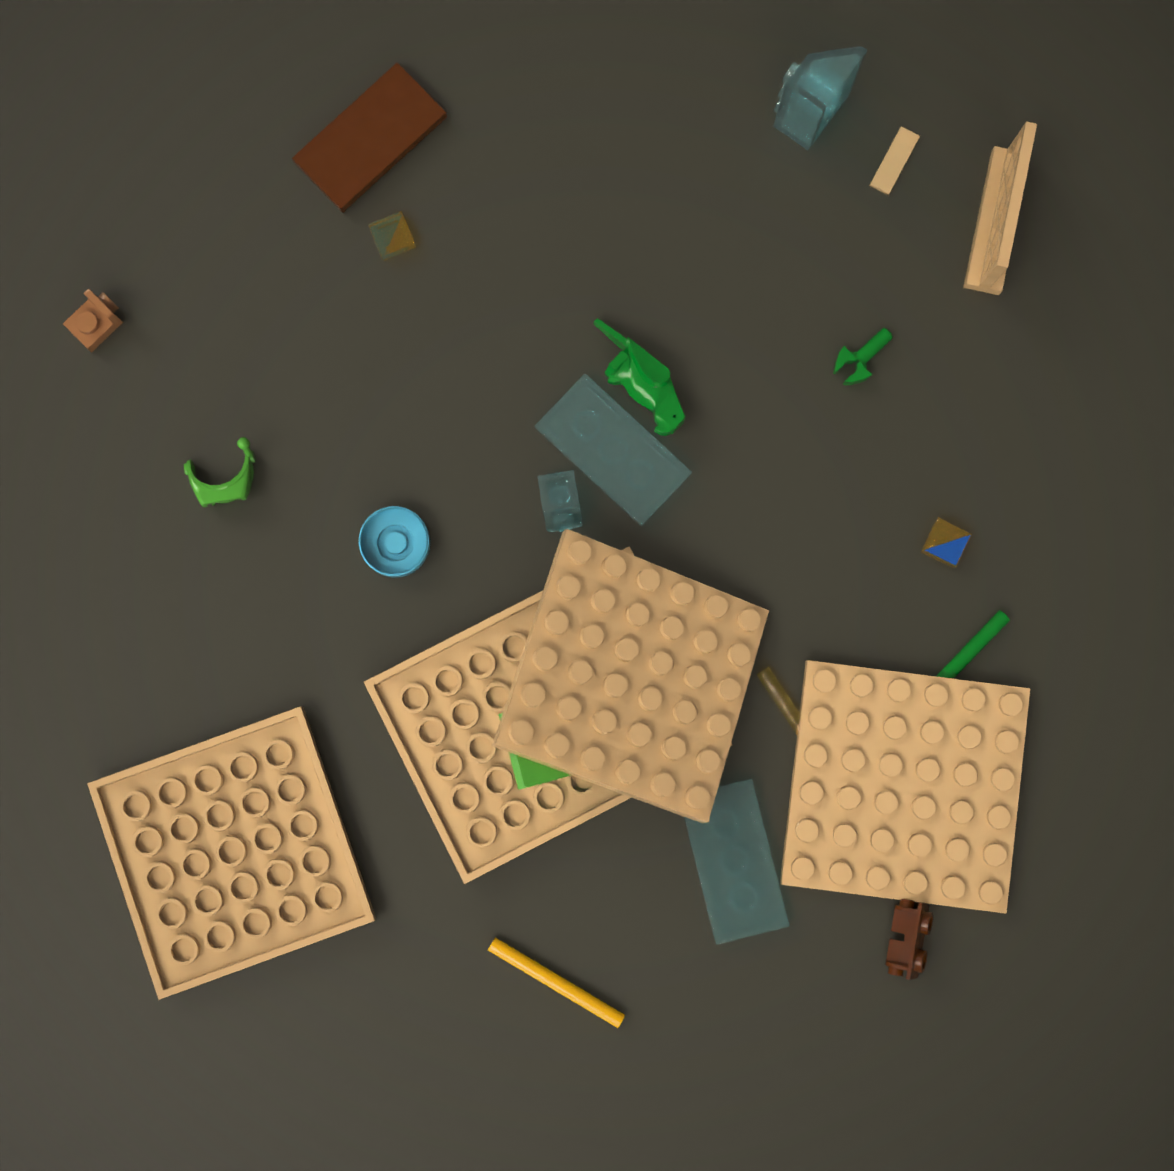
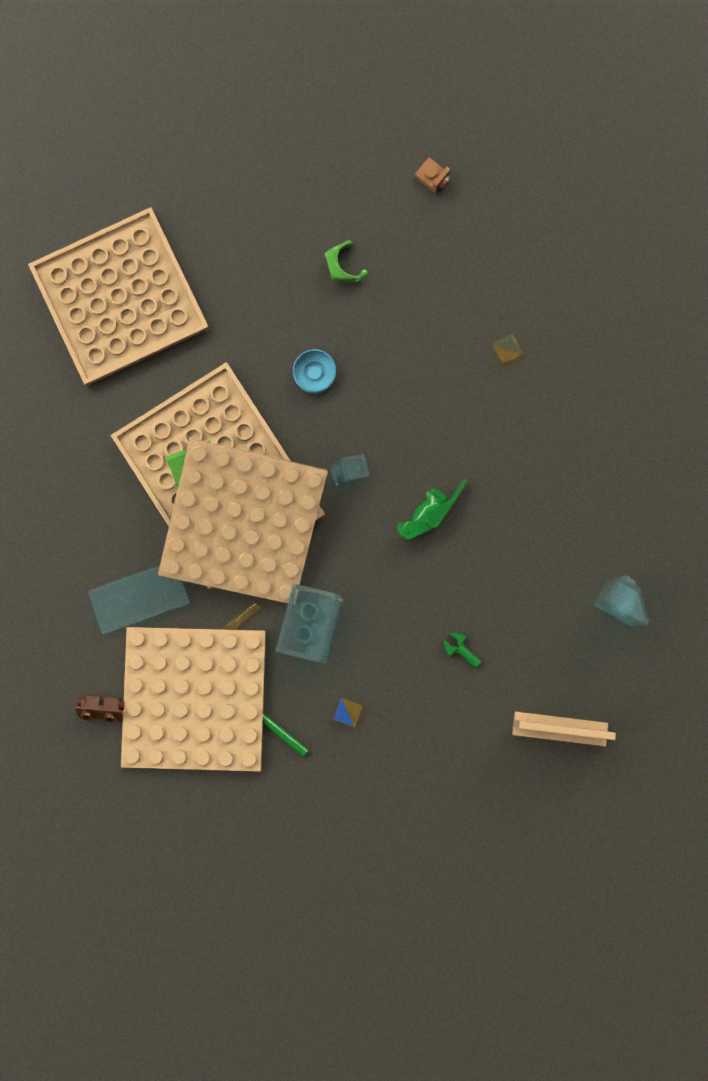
camera: 85 degrees right, 0 degrees up
(369, 137) = (568, 328): reddish brown tile -> none
(556, 982) = (57, 497): yellow bar -> none
(613, 450) = (385, 499): clear light blue tile -> none
(805, 588) = (309, 623): none -> clear light blue slope
(894, 160) = (592, 660): tan window -> none

